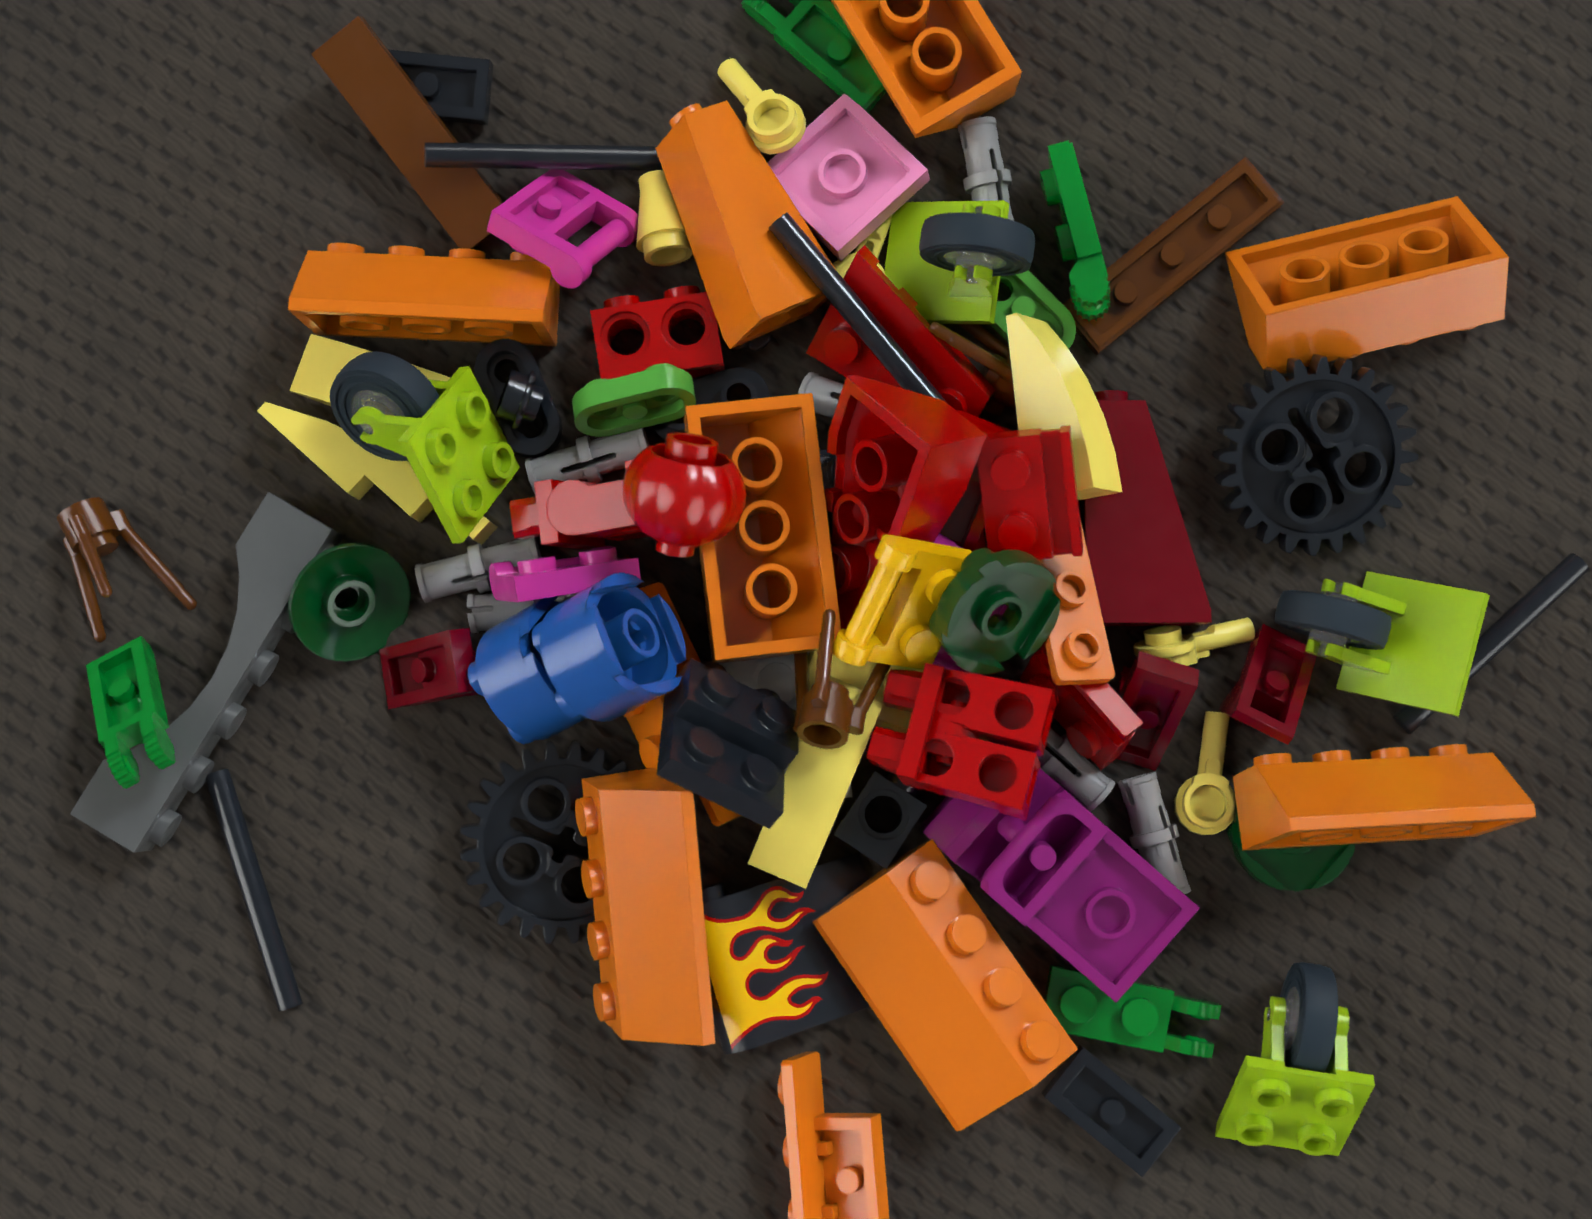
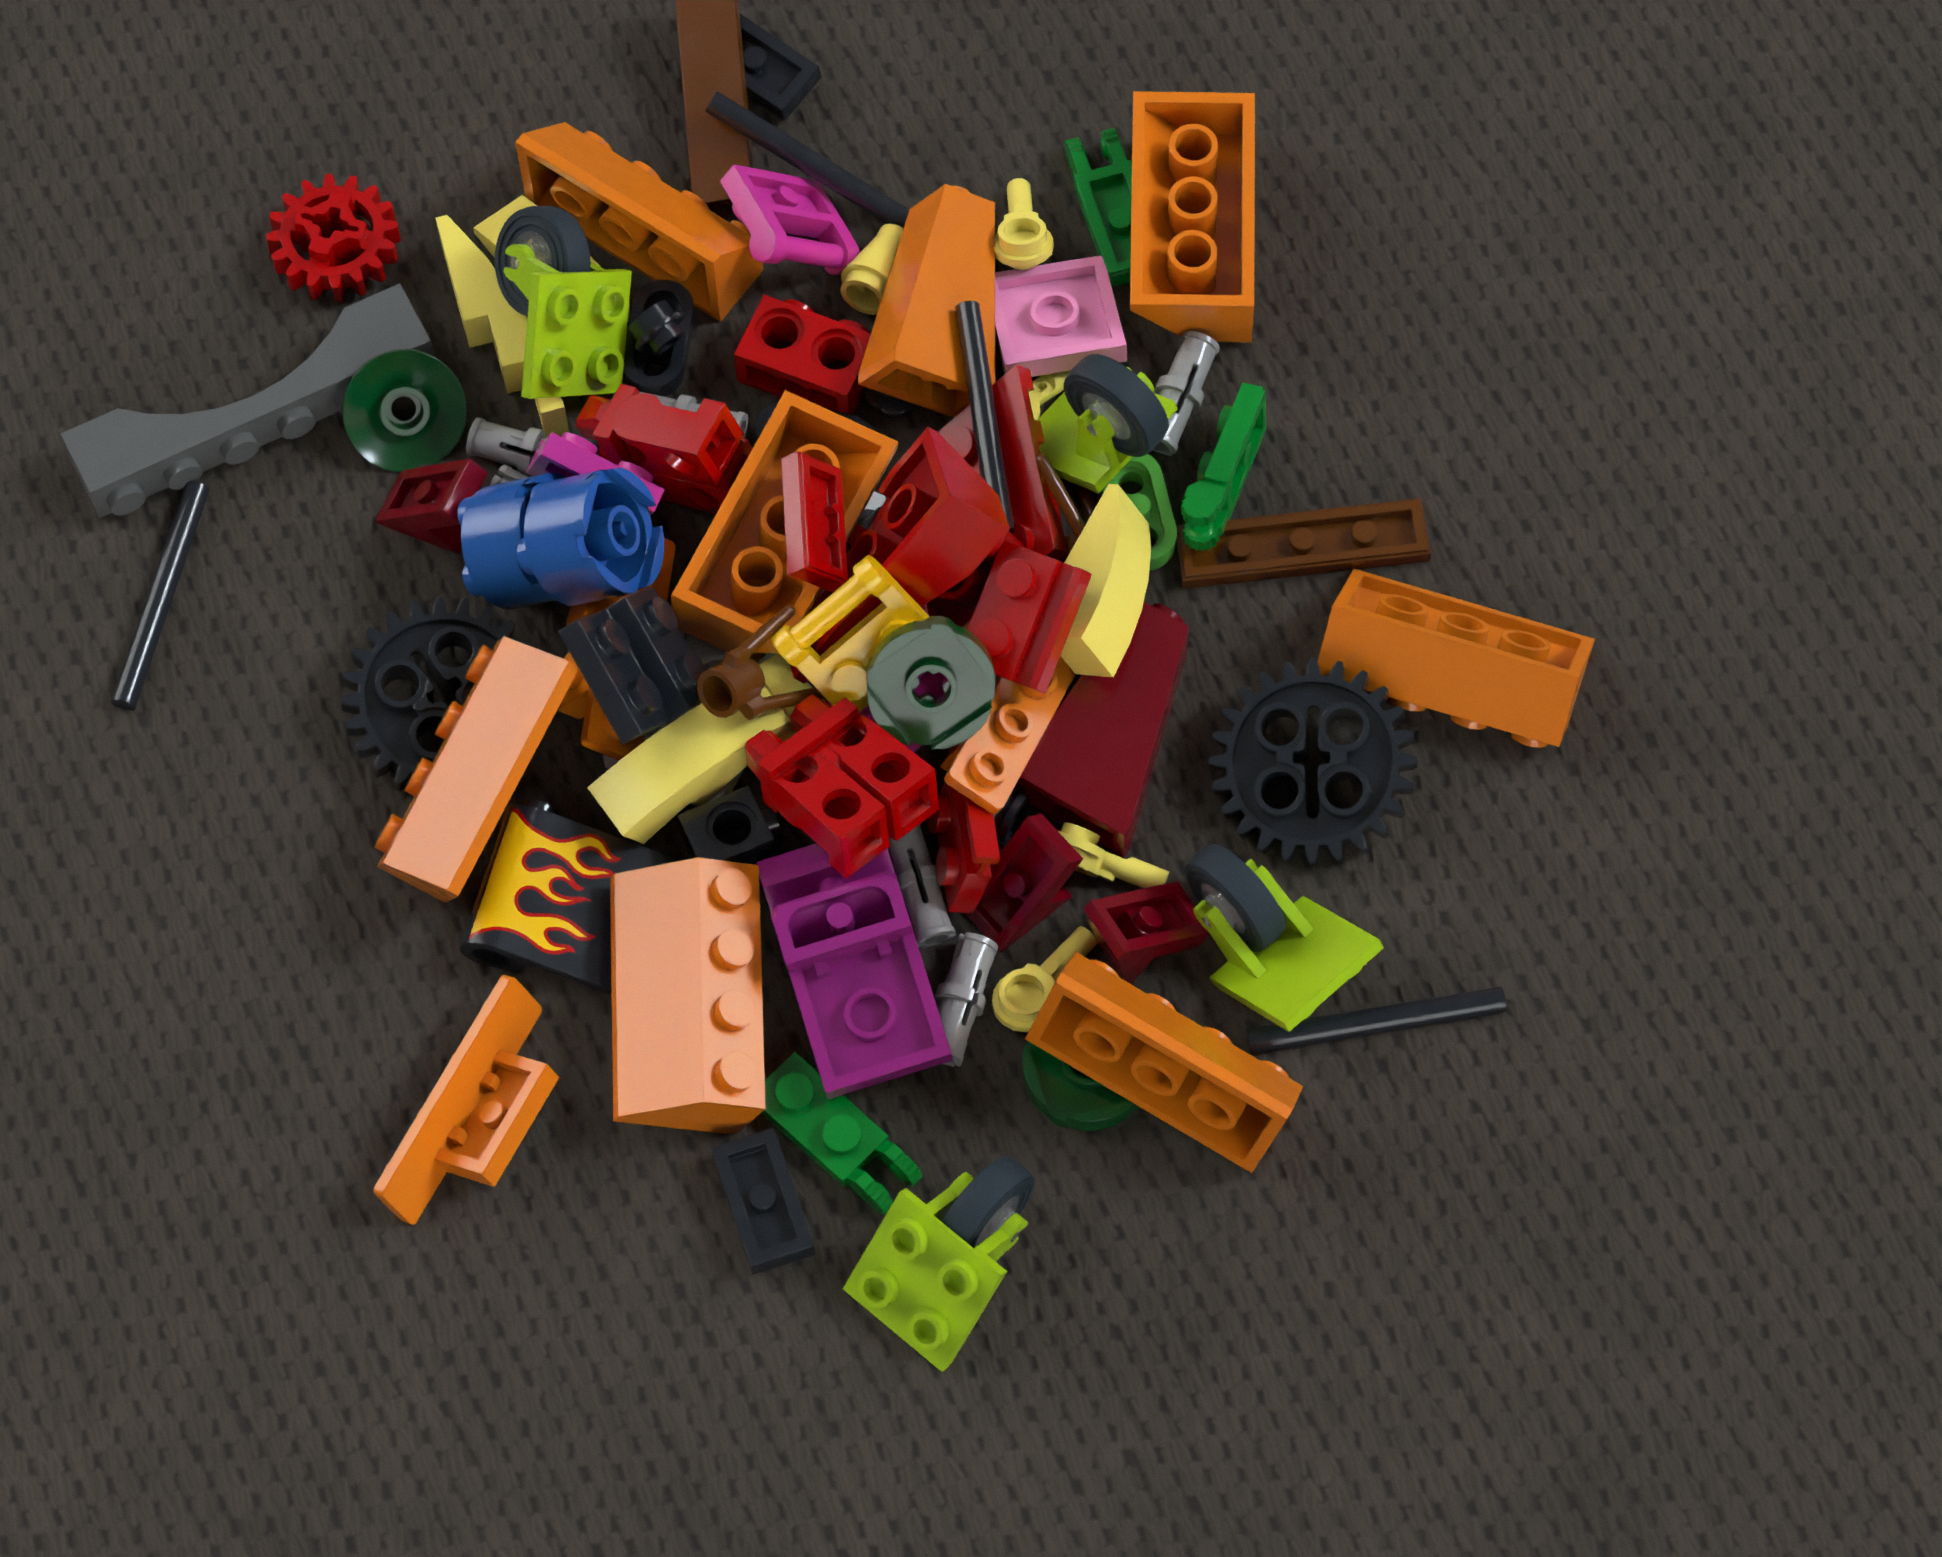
camera: 35 degrees right, 20 degrees down
(91, 535) = (231, 247): reddish brown plant -> none
(129, 709) = (167, 382): green hinge -> none
(183, 501) = (338, 244): none -> red gear
(633, 401) = (746, 379): bright green plate -> none
(683, 493) = (733, 446): red plant -> none
(800, 521) = (814, 521): none -> red plate

